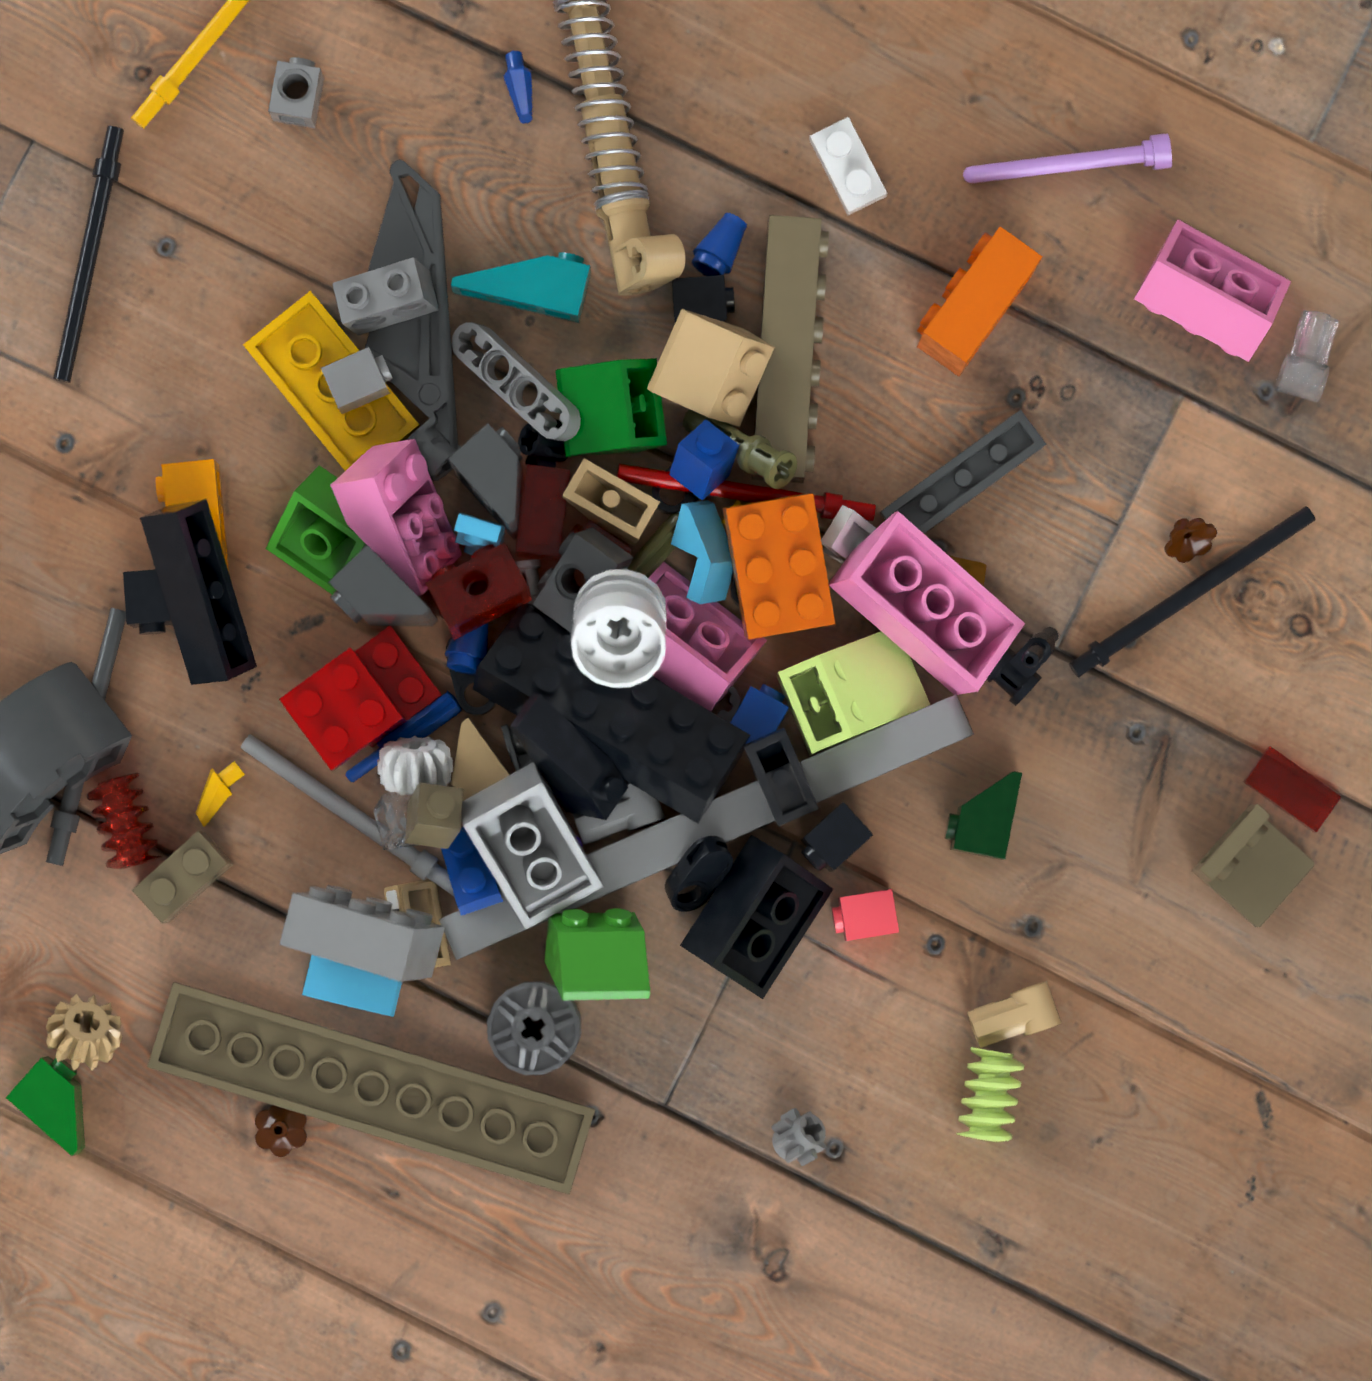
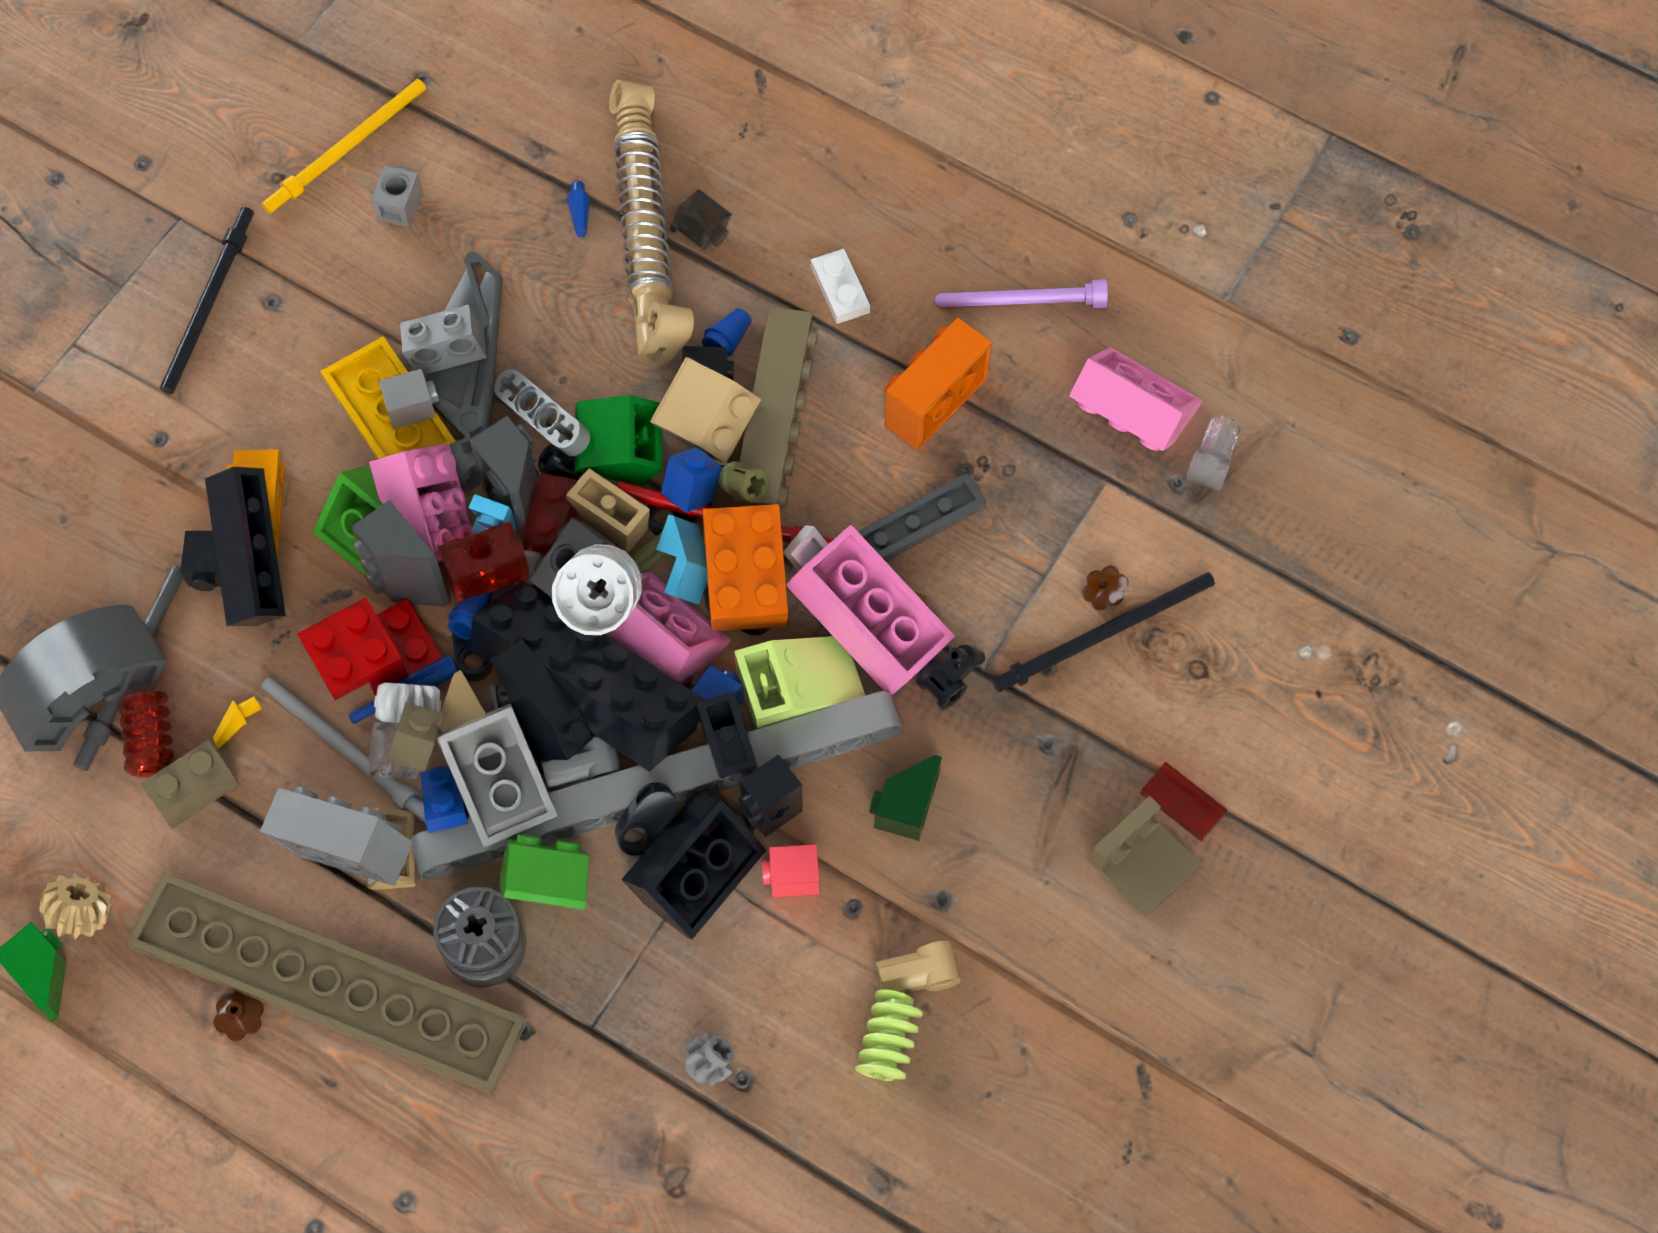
camera: 10 degrees right, 20 degrees down
(351, 987) = (324, 890): medium azure slope -> none
(535, 285) = (569, 348): teal slope -> none
(673, 97) = (702, 220): none -> clear smoke brick

